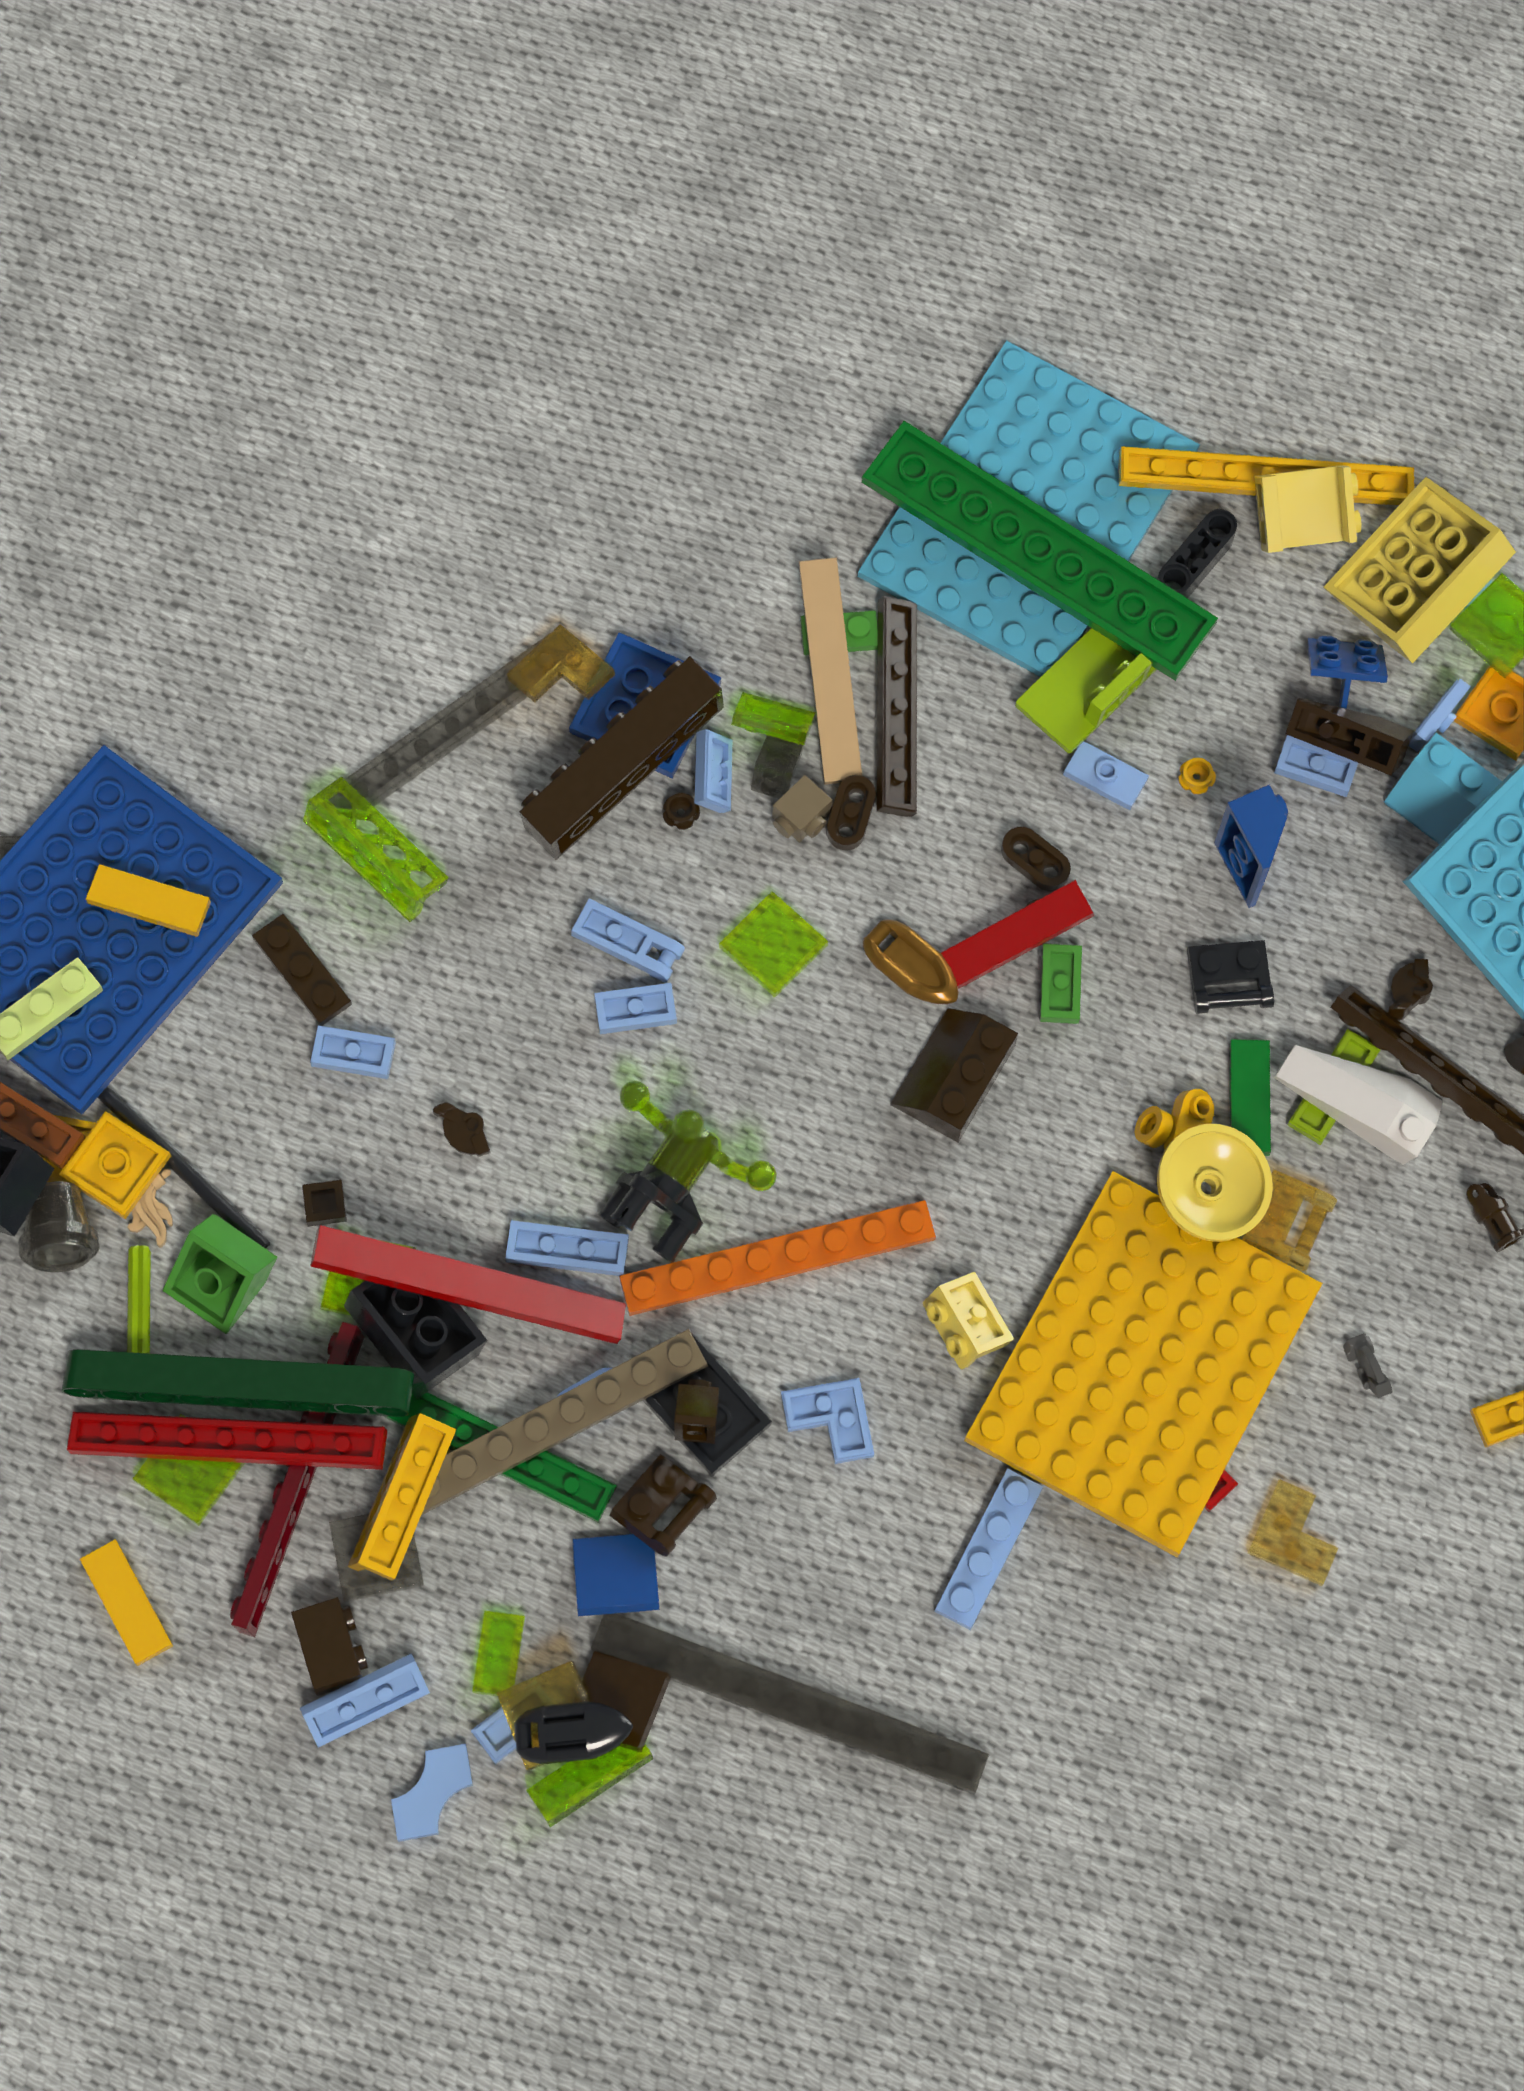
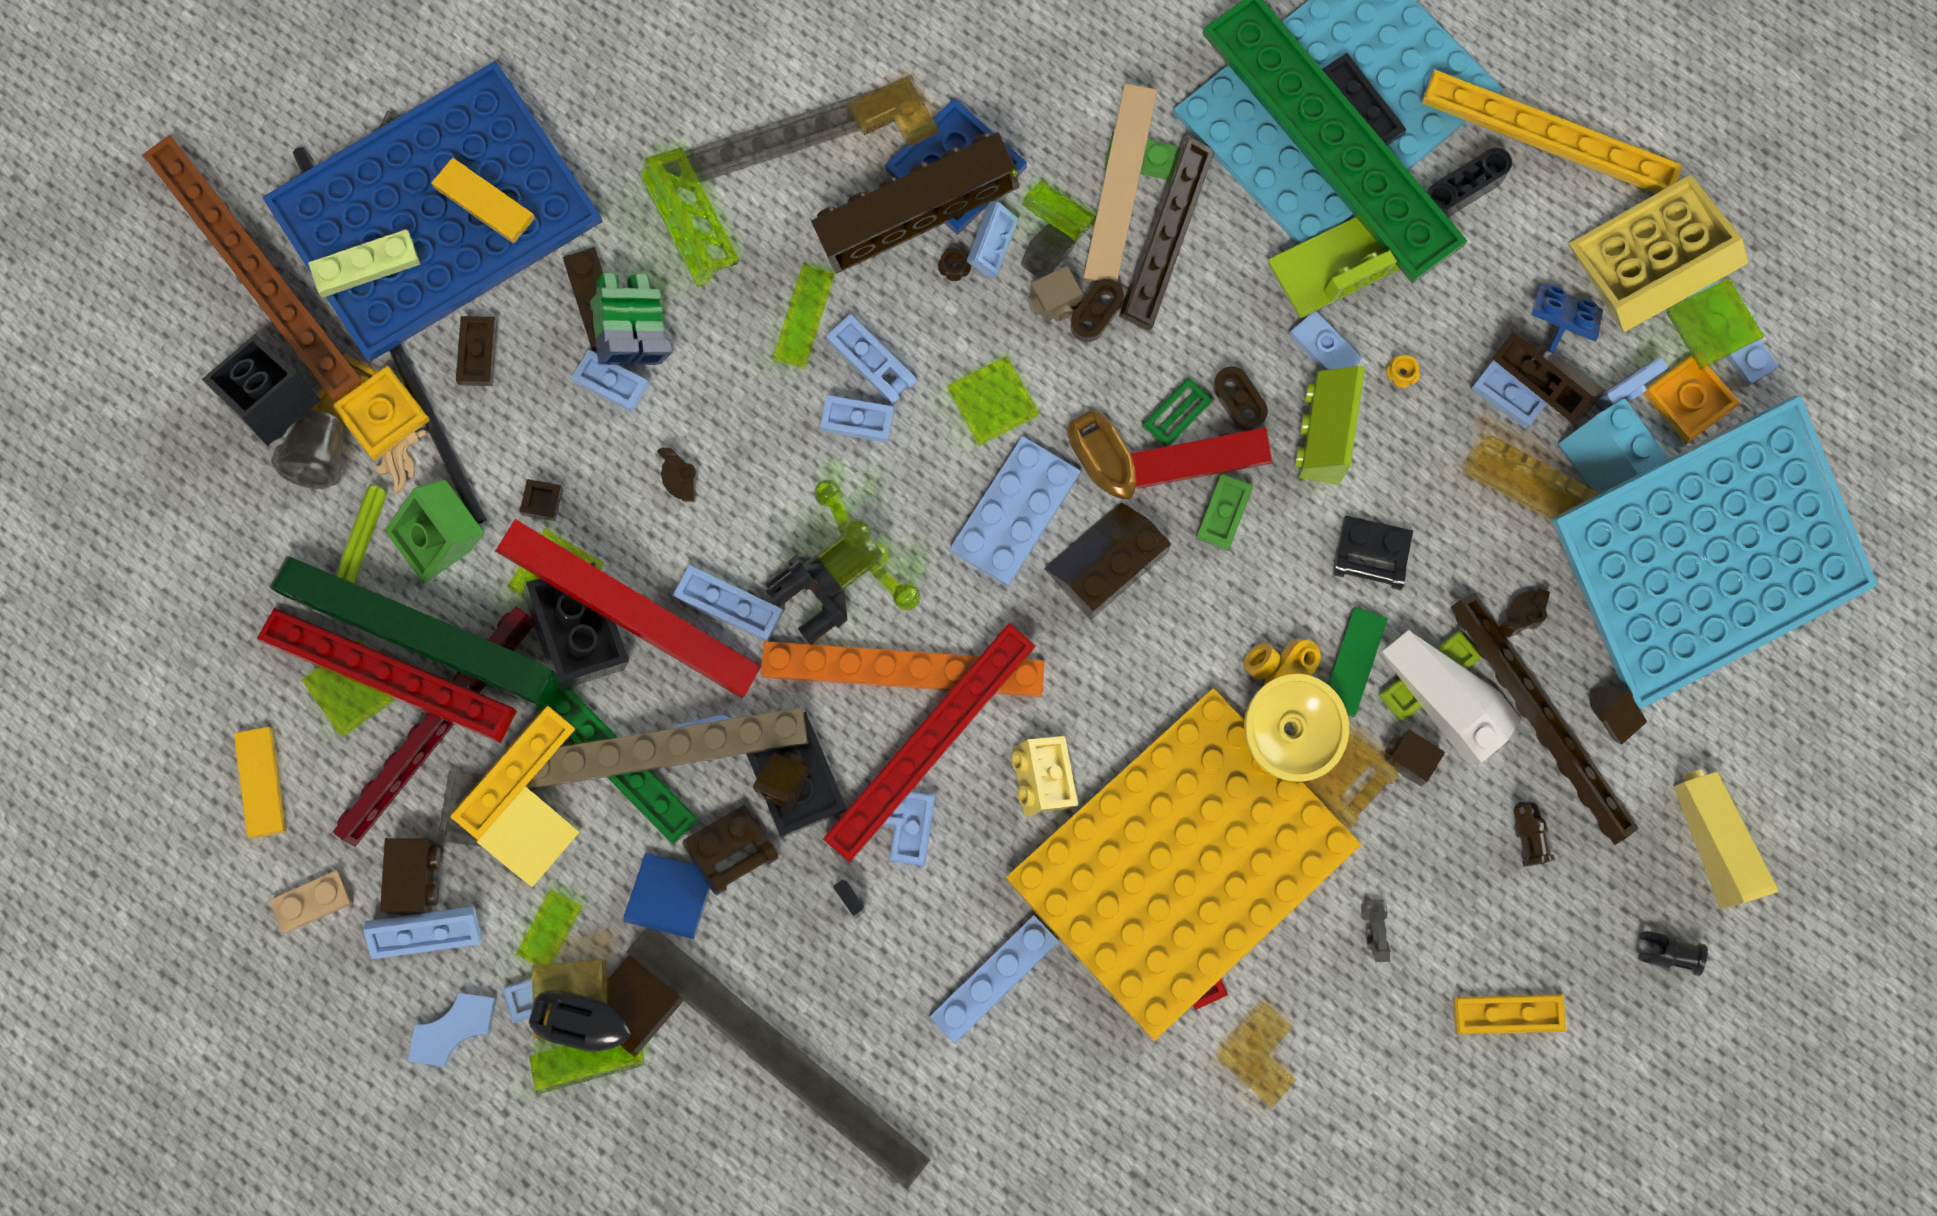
camera: 20 degrees right, 5 degrees up
(194, 1065) = (476, 351): none -> dark brown plate
(229, 1709) = (310, 902): none -> tan plate
(353, 981) = (628, 322): none -> hips
(443, 1563) = (528, 837): none -> light yellow tile
(538, 918) = (803, 317): none -> clear neon green plate
(808, 1514) = (849, 898): none -> black tile
(835, 1324) = (929, 743): none -> red tile
(838, 1053) = (1015, 511): none -> light blue plate
(961, 922) = (1157, 433): none -> green tile
(1058, 499) = (1365, 98): none -> black tile
(1140, 856) = (1330, 424): none -> lime slope
(1250, 839) = (1430, 438): blue slope -> none
(1307, 507) = (1577, 170): light yellow panel -> none
(1345, 1175) = (1413, 756): none -> dark brown brick
(1372, 854) = (1525, 478): none -> clear yellow fence

